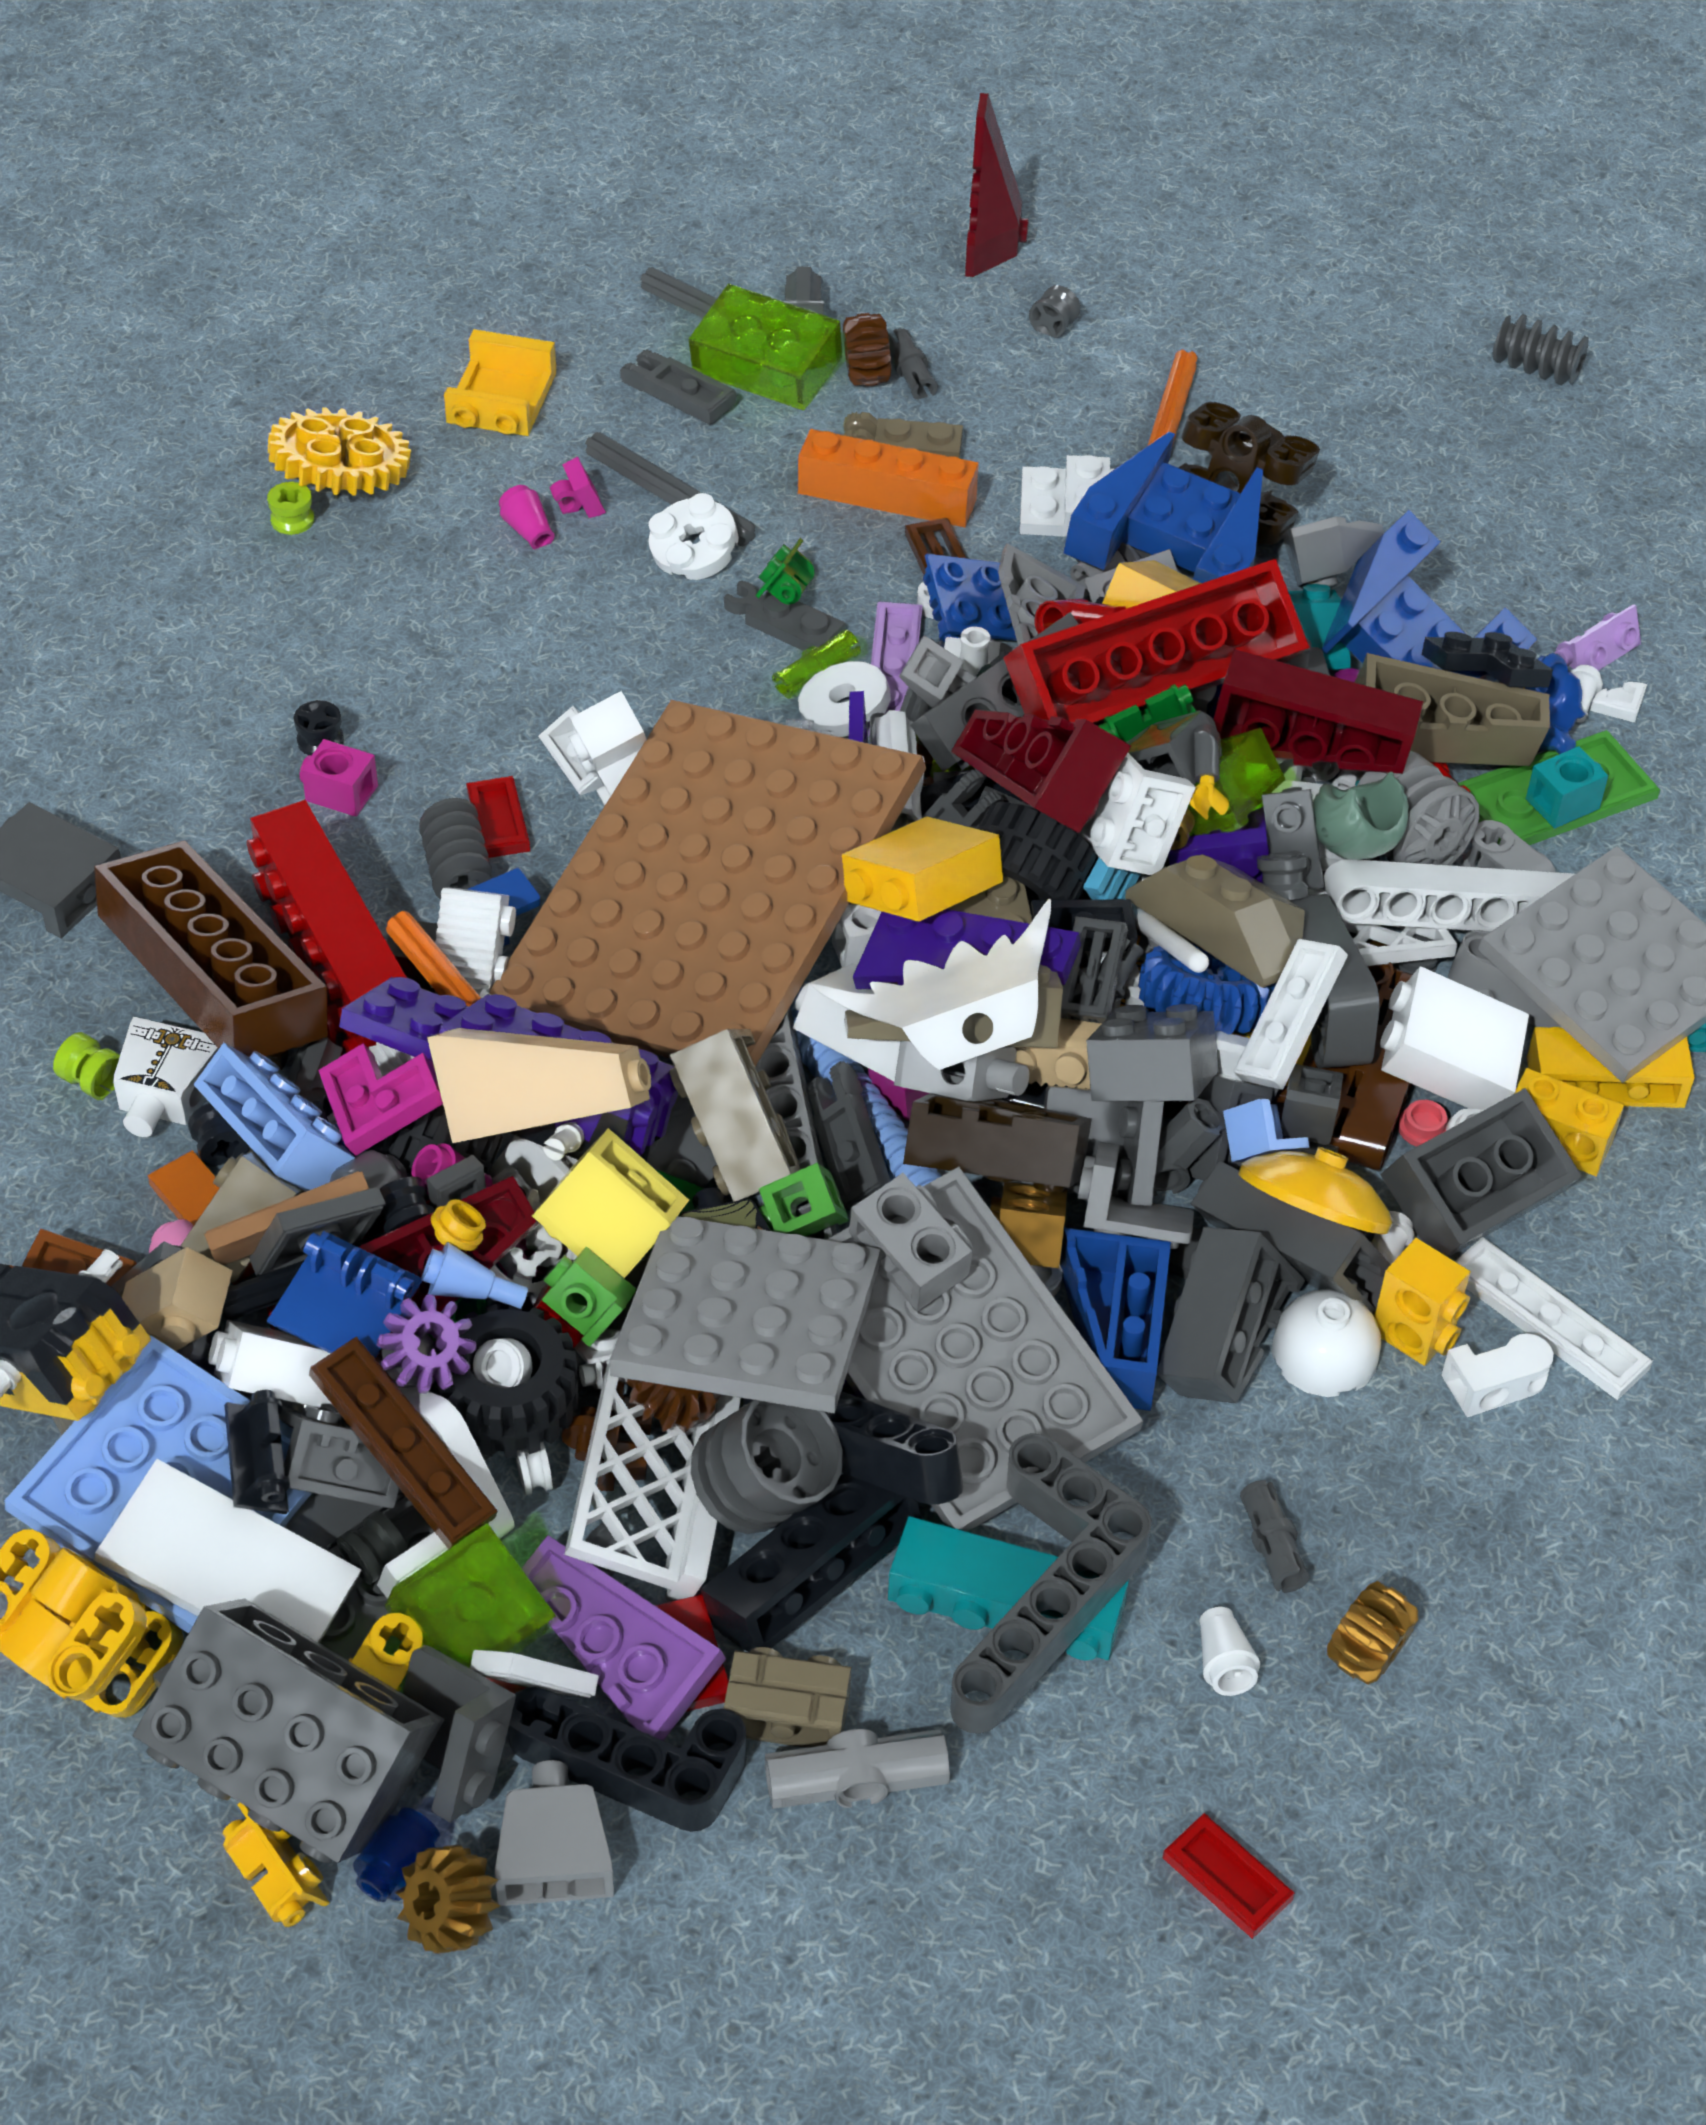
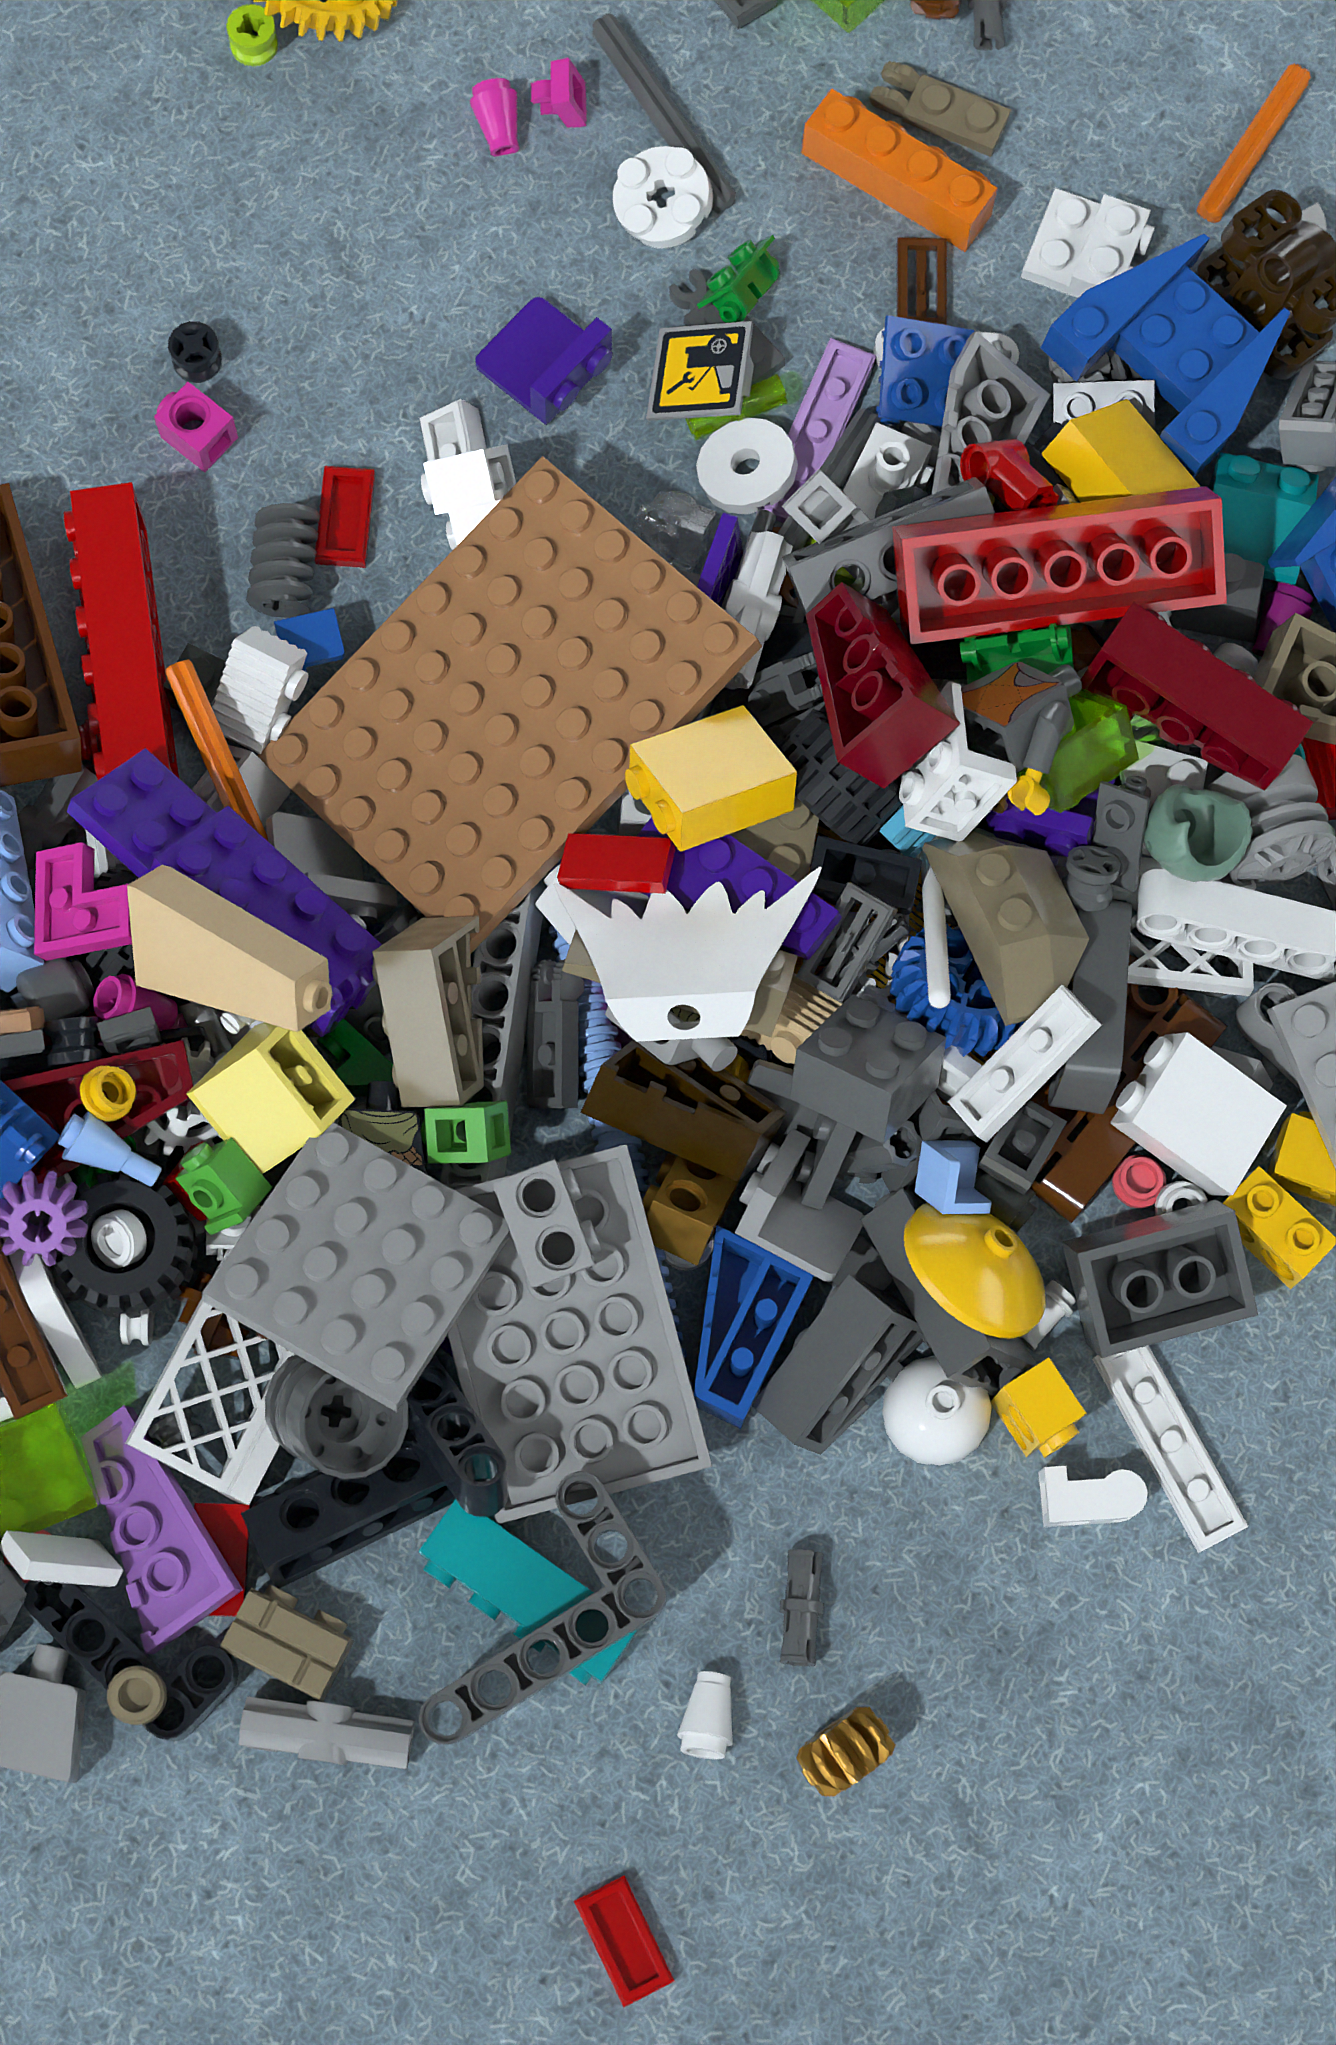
camera: 15 degrees right, 25 degrees up
(638, 664) = (545, 358): none -> dark purple bracket
(656, 1768) = (136, 1695): none -> dark tan tile
(777, 638) = (701, 371): none -> piece
(862, 954) = (616, 863): none -> red tile

